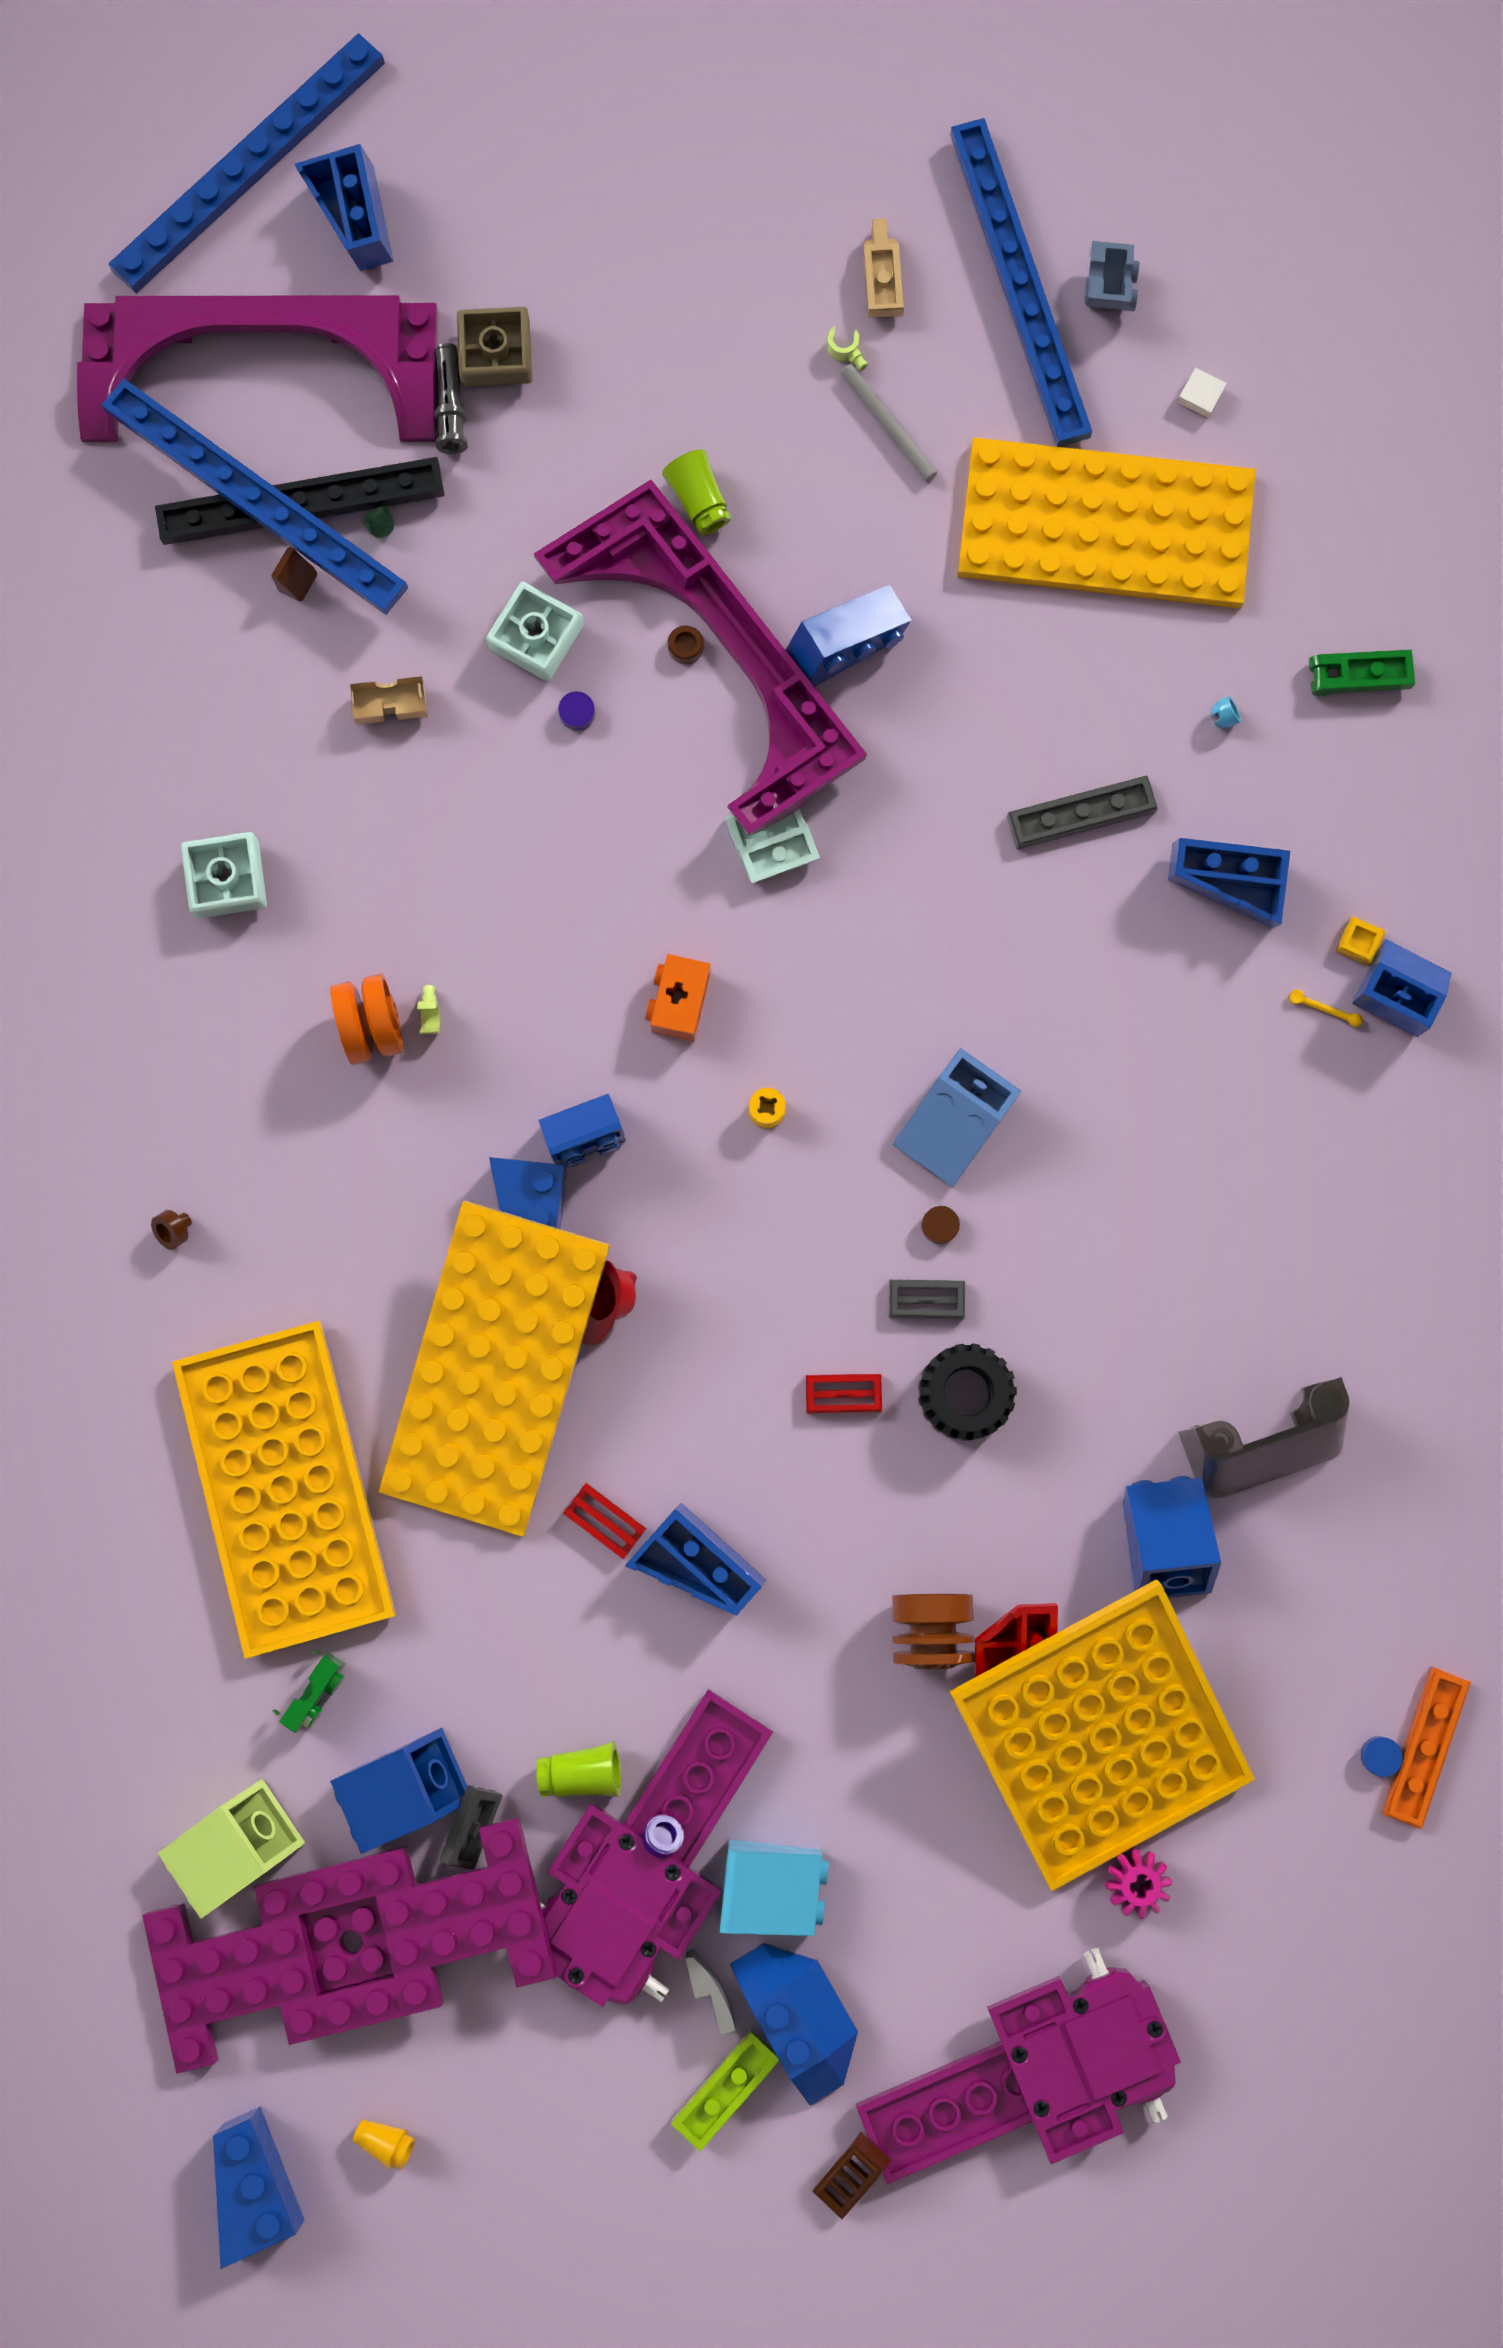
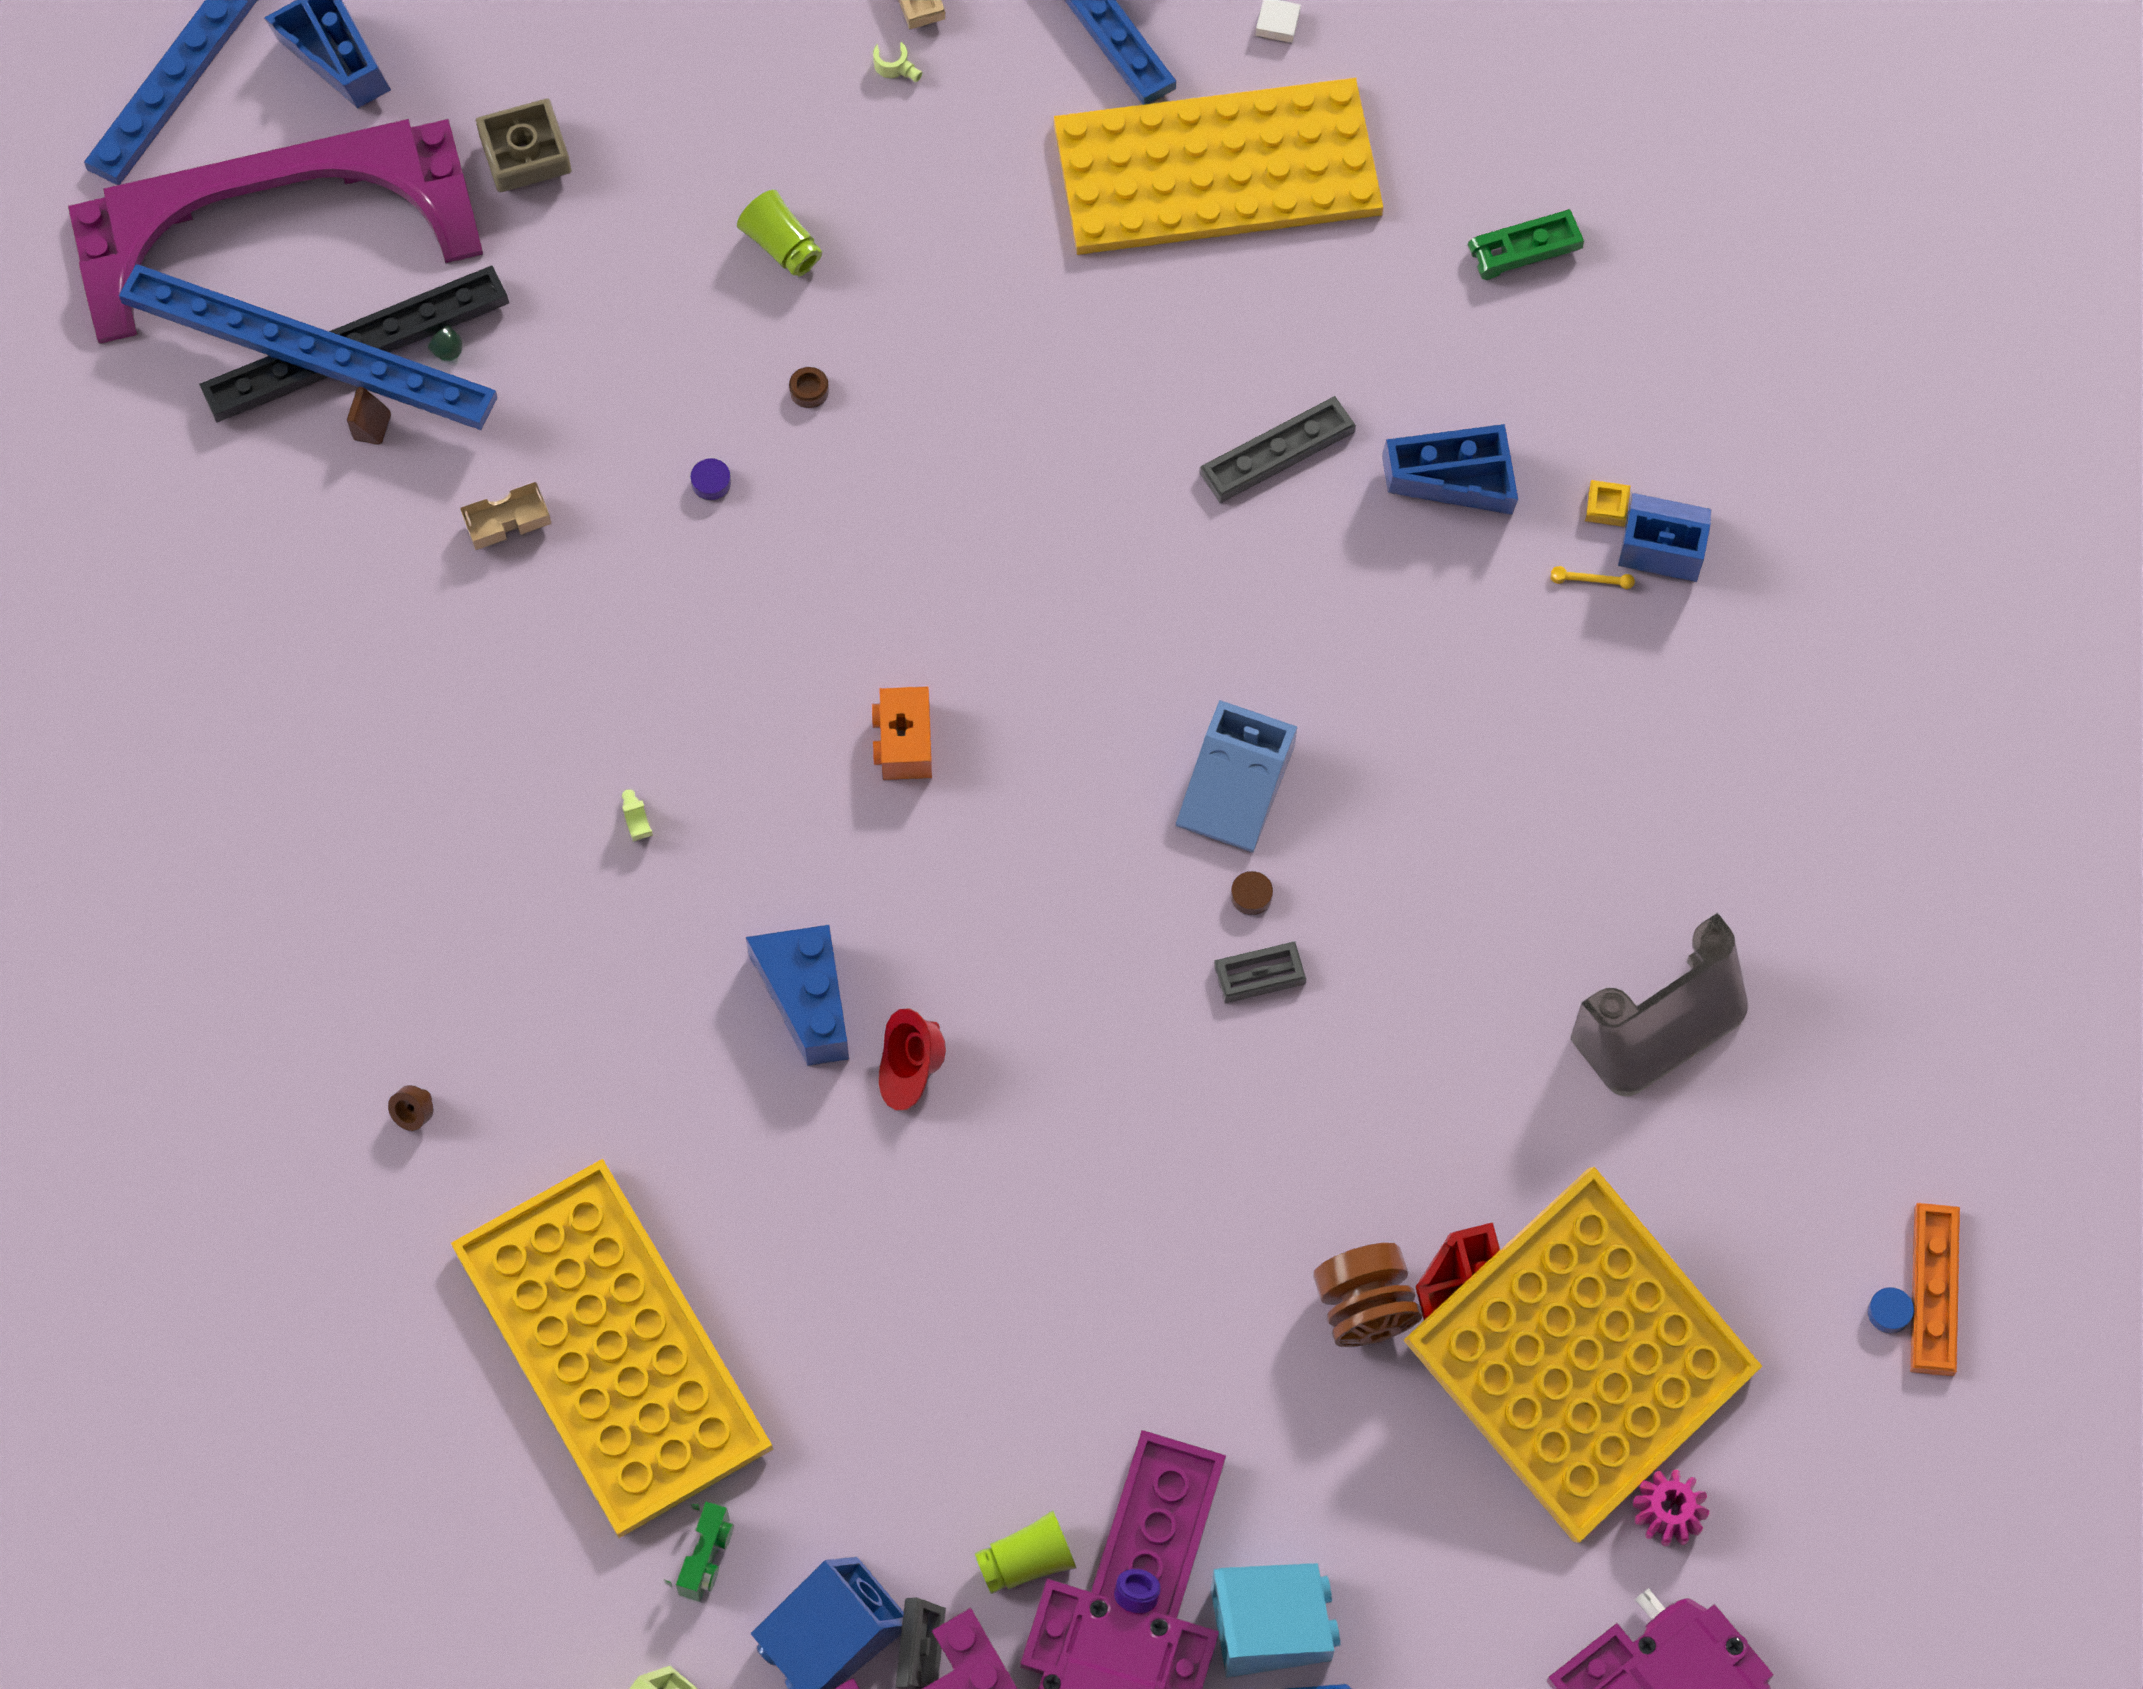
camera: 15 degrees left, 15 degrees down
(205, 862) = (379, 708): light aqua brick -> none
(360, 1020) = (579, 829): orange wheel -> none
(449, 413) = (497, 234): dark grey pin -> none
(494, 1368) = (811, 1154): yellow plate -> none
(529, 610) = (628, 395): light aqua brick -> none
(579, 1501) = (980, 1273): red tile -> none
(583, 1131) = (840, 890): blue slope -> none
(652, 545) = (747, 297): magenta piece -> none
(697, 1561) = (1090, 1297): blue wedge -> none
(770, 1113) = (1030, 830): yellow wheel -> none
(774, 849) = (956, 552): light aqua slope -> none
(845, 1378) = (1201, 1106): red tile -> none
(848, 634) = (975, 337): wedge -> none
(889, 423) = (961, 123): light grey bar -> none
(999, 1386) = (1339, 1018): black tyre -> none
(1171, 1536) = (1596, 1126): blue slope -> none
(1227, 712) = (1399, 314): medium azure hinge -> none

